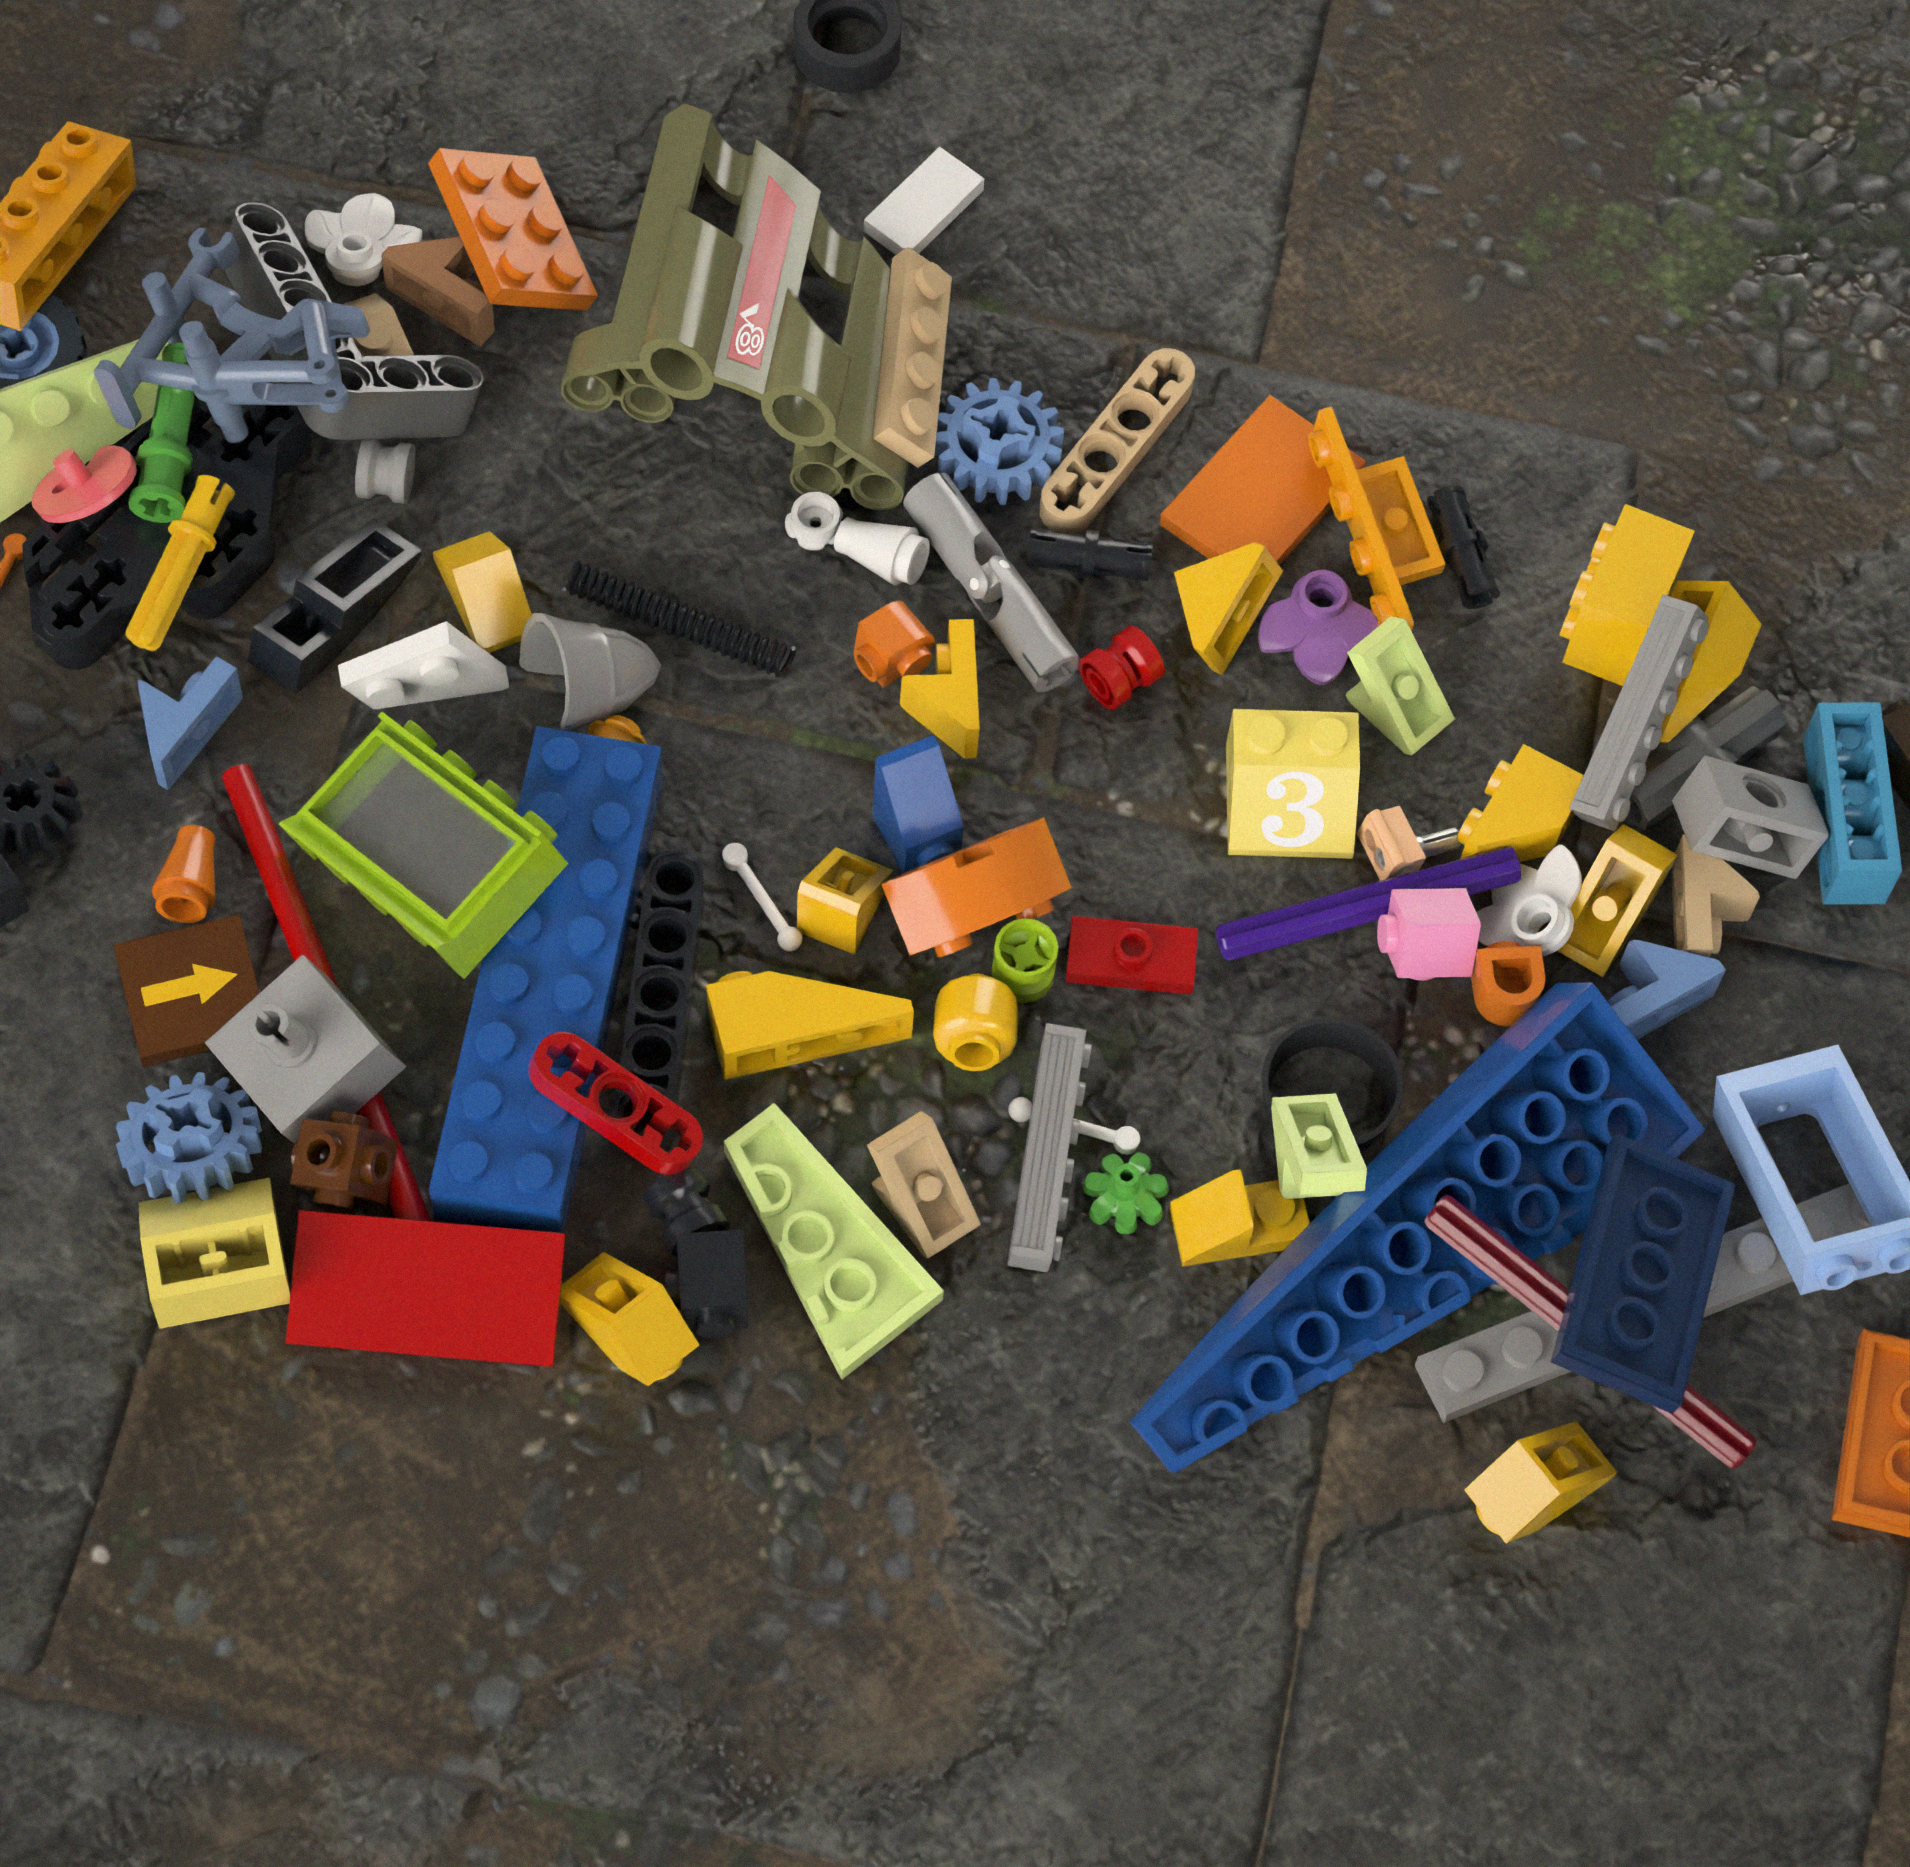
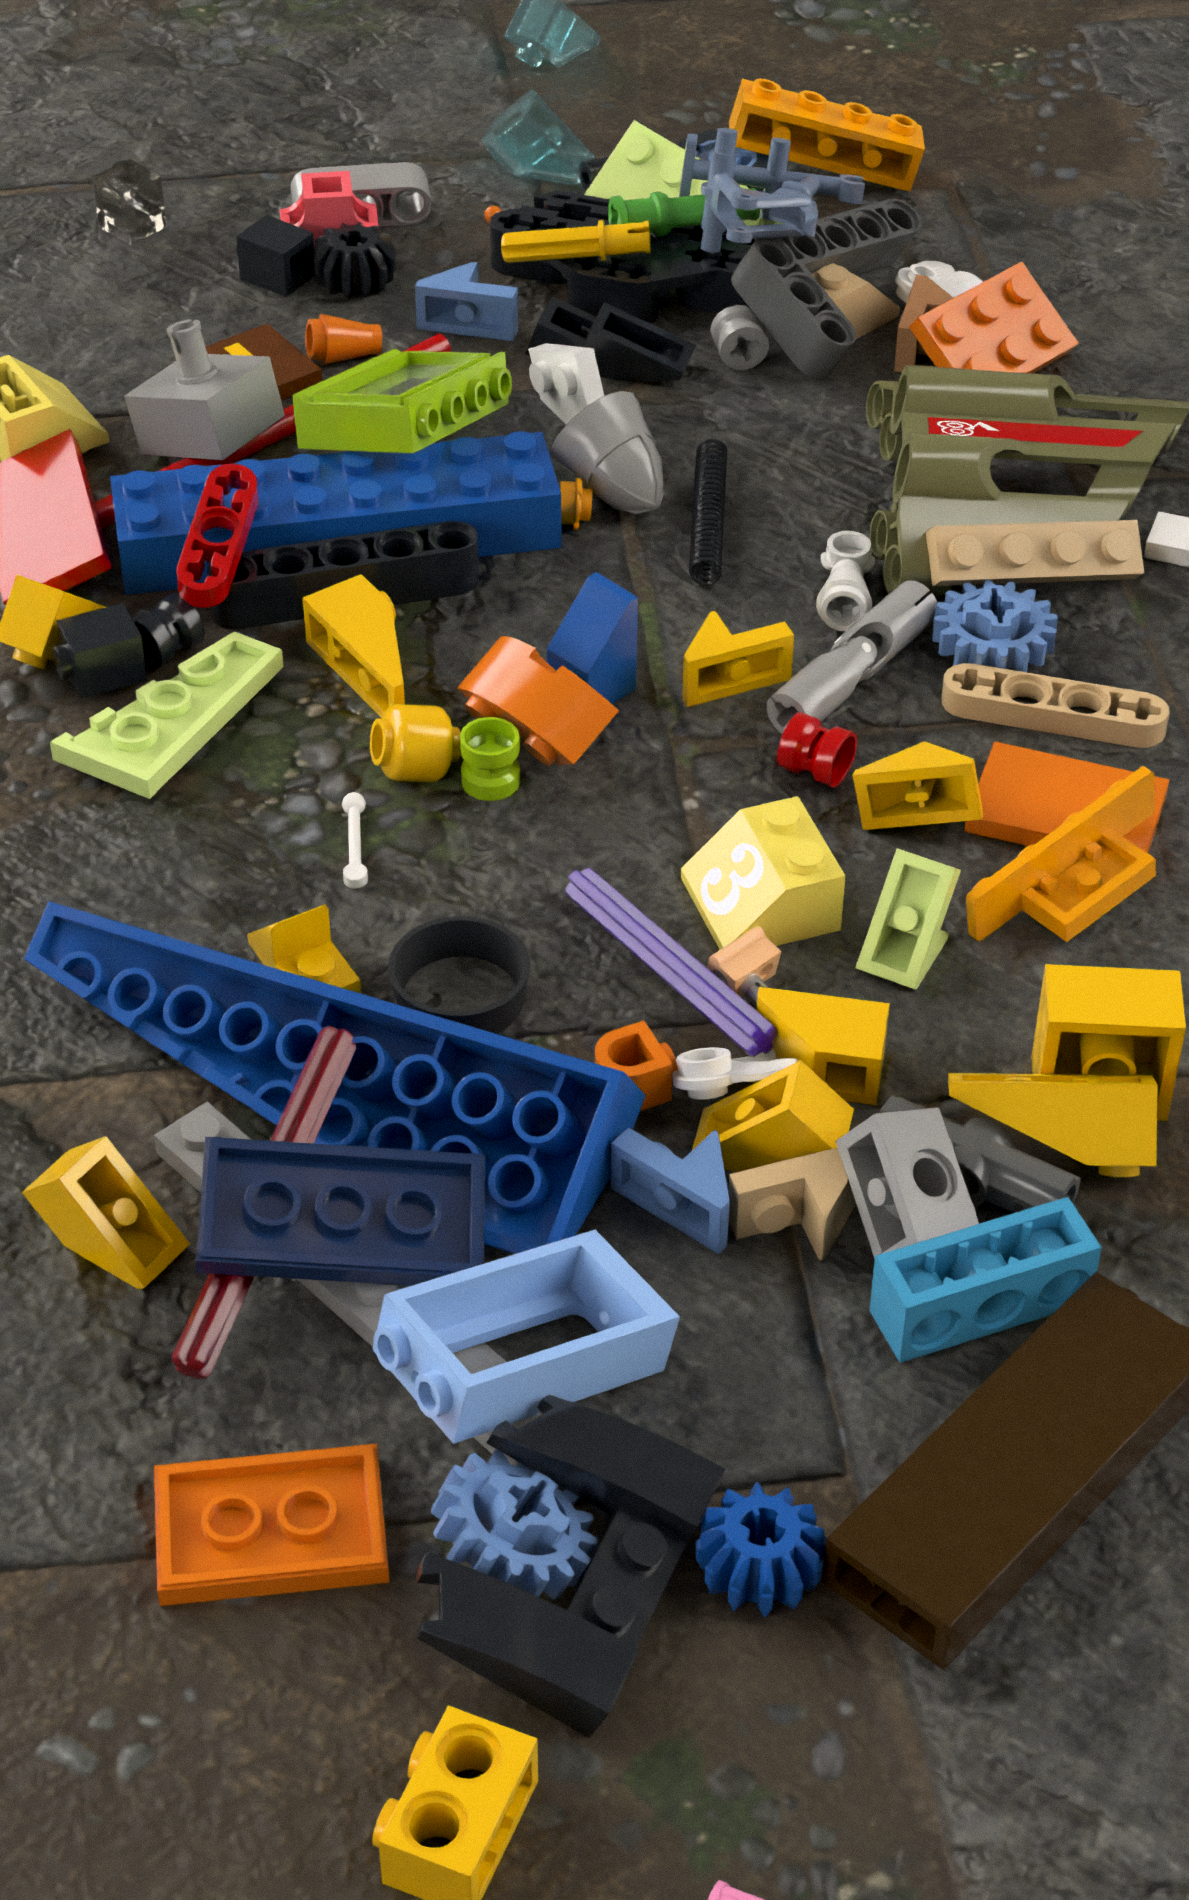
camera: 75 degrees right, 20 degrees down
(81, 490) = (619, 185): coral piece -> none
(189, 1137) = (105, 378): medium blue gear -> none
(343, 1161) = (124, 423): reddish brown brick -> none
(485, 590) = (676, 407): yellow slope -> none
(735, 859) = (510, 597): white hinge -> none
(840, 899) = (481, 623): yellow slope -> none
(892, 644) = (754, 605): orange plate -> none
(922, 1185) = (238, 748): tan slope -> none
(1047, 1147) = (313, 812): light grey piece -> none
(1089, 554) = (923, 707): black pin -> none
(1125, 1192) = (301, 882): bright green plant -> none
(1131, 955) = (538, 832): red plate -> none
(1315, 1147) = (365, 944): yellowish green slope -> none
(1316, 633) = (974, 855): medium lavender plate -> none
(1430, 933) = (655, 988): bright pink brick -> none
(1463, 547) = (1130, 930): black pin -> none
(1639, 713) = (960, 1051): light grey piece -> none

